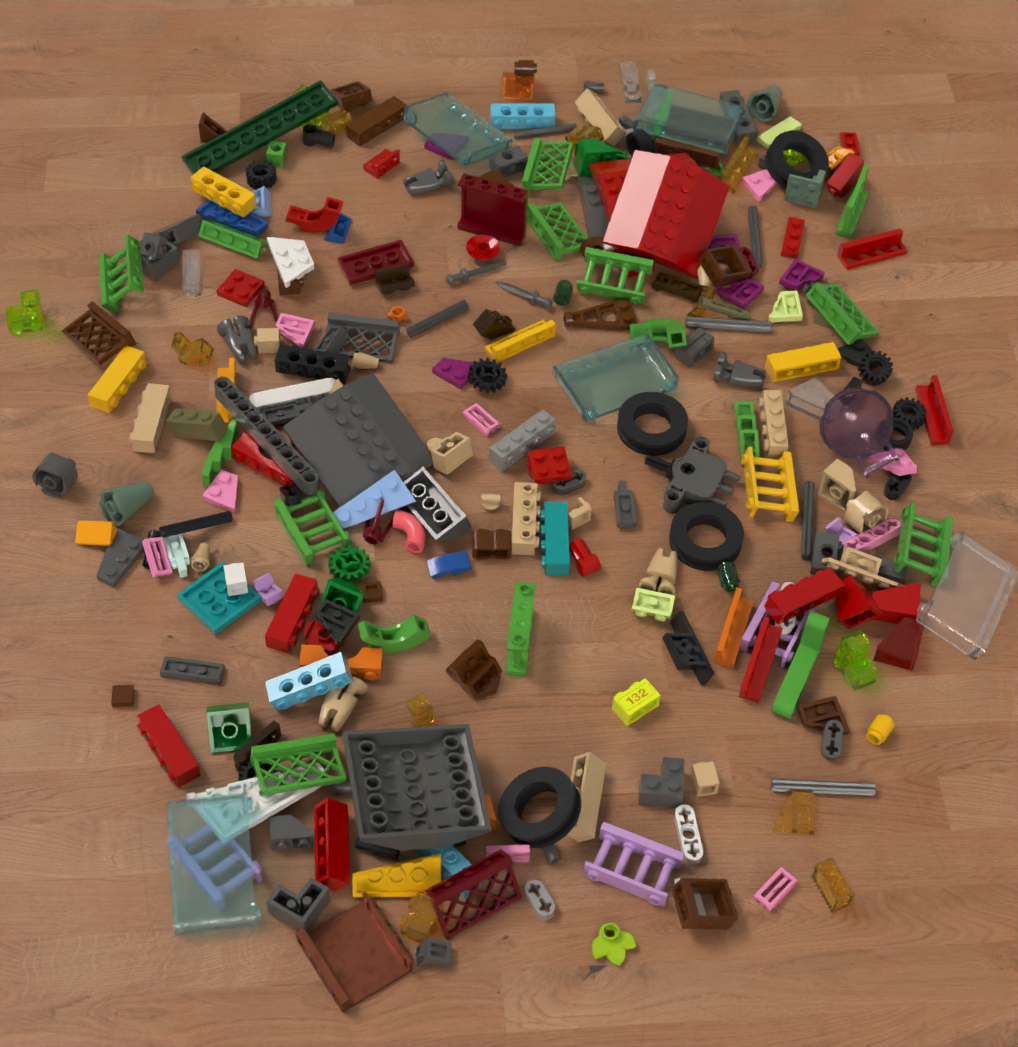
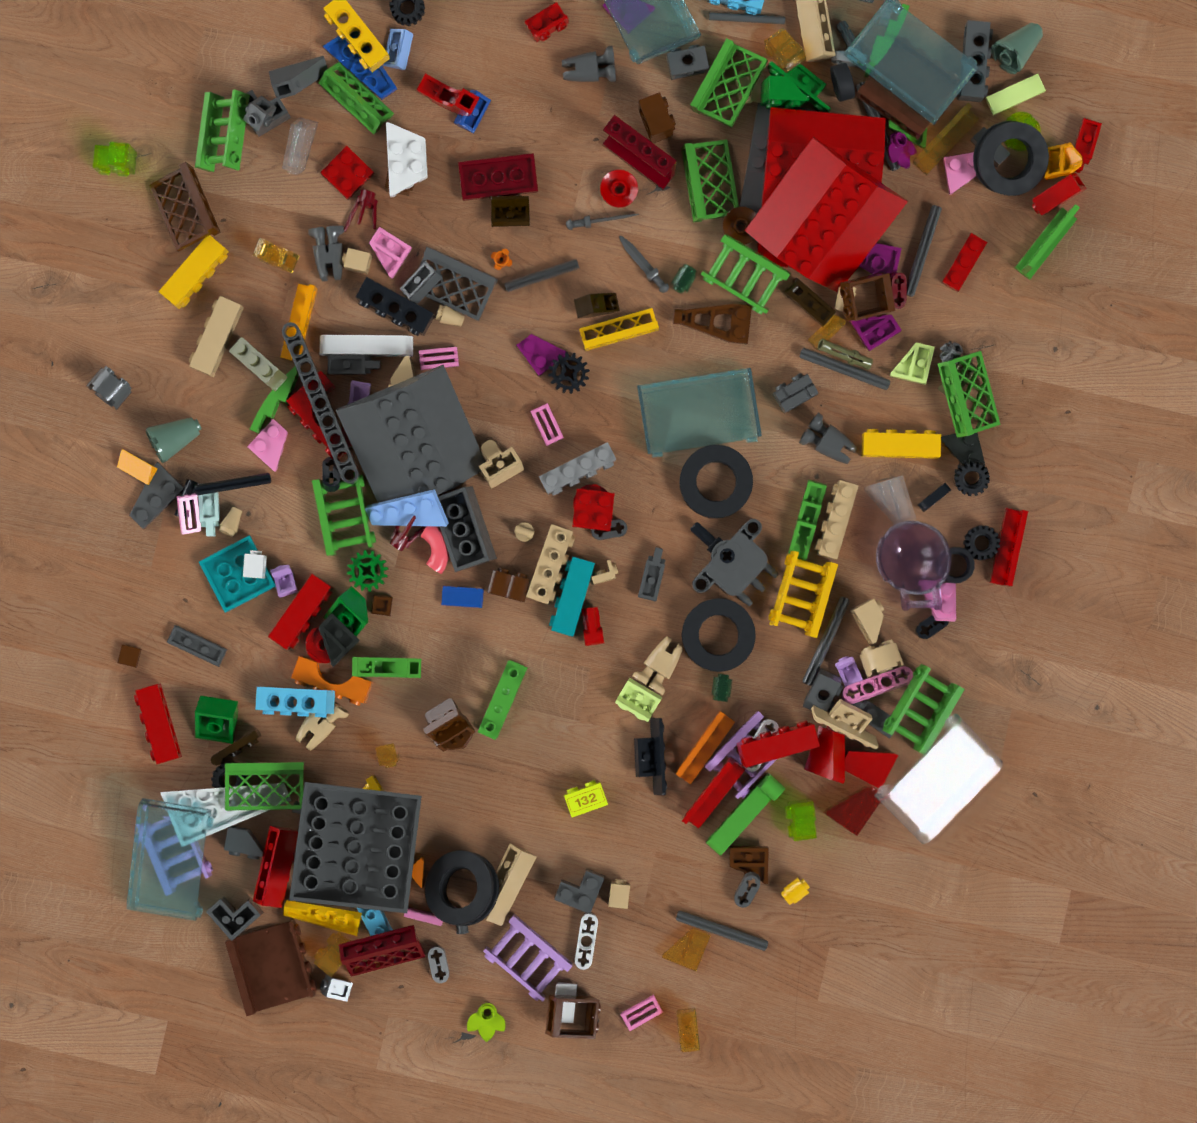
camera: 20 degrees right, 35 degrees up
(662, 330) = (769, 366): bright green arch -> none
(800, 274) = (948, 322): magenta wing -> none
(805, 190) = (1004, 211): sand green bracket -> none
(869, 246) = (1042, 300): red fence -> none

